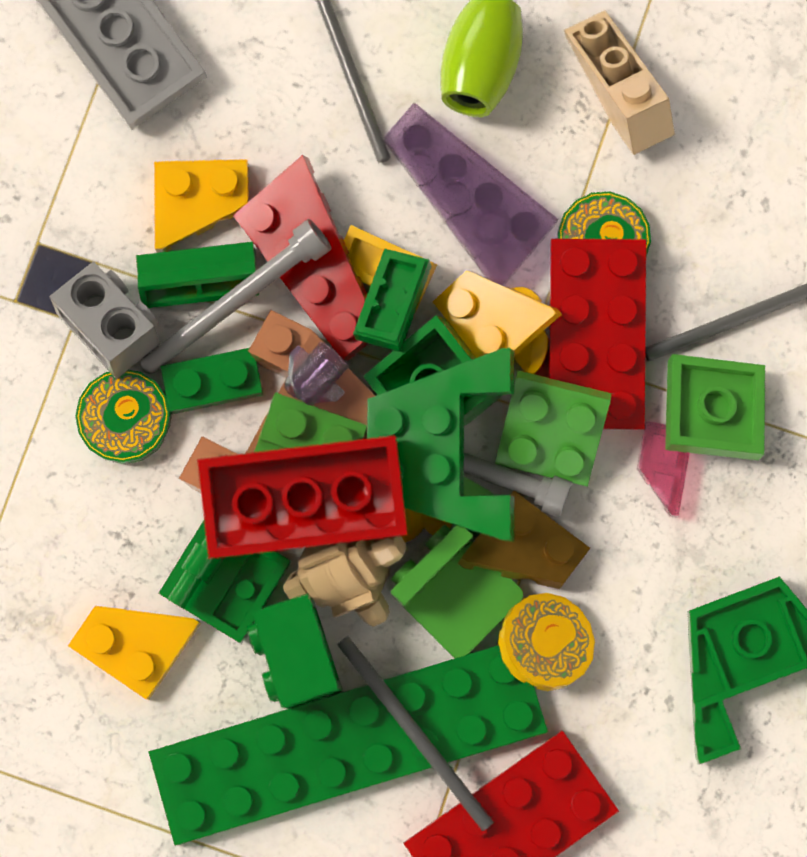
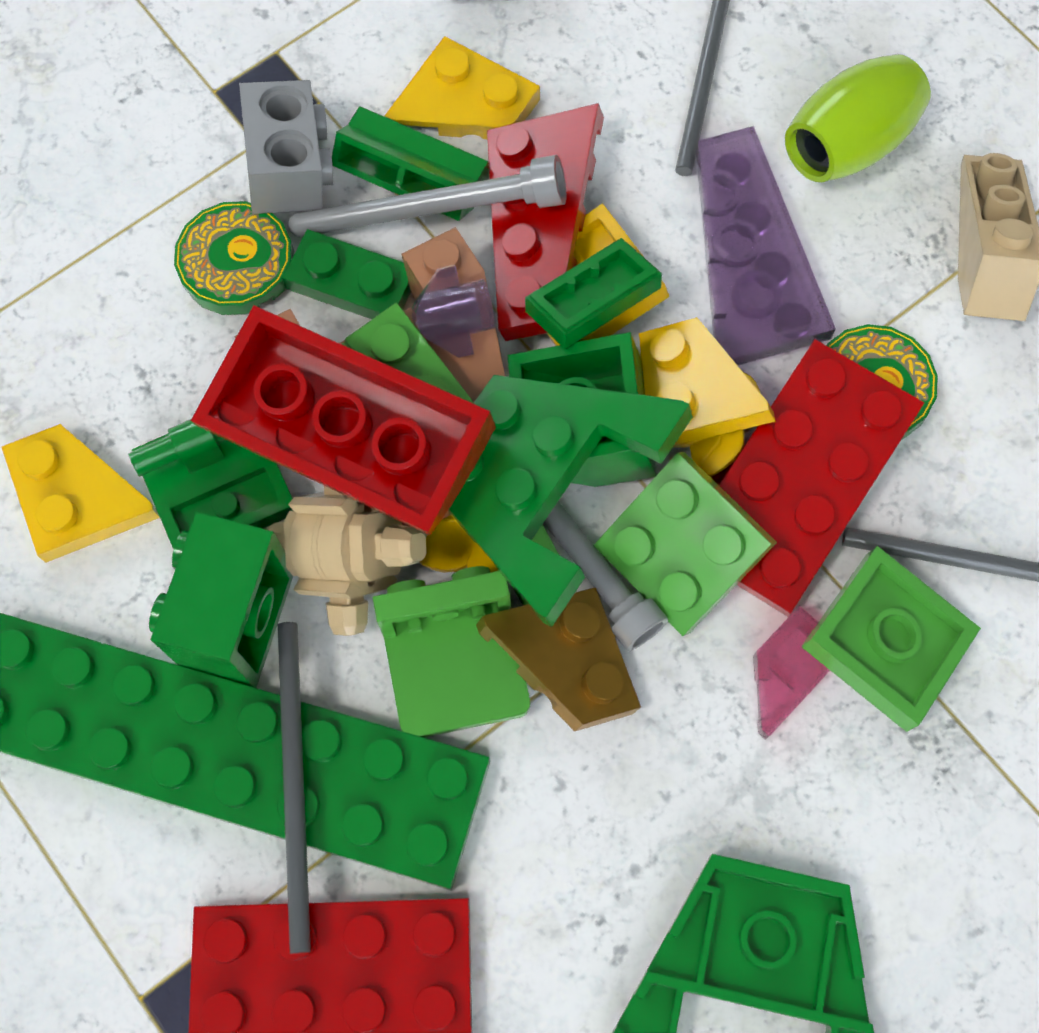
camera: 30 degrees right, 10 degrees down
(546, 641) = (518, 780): tile -> none

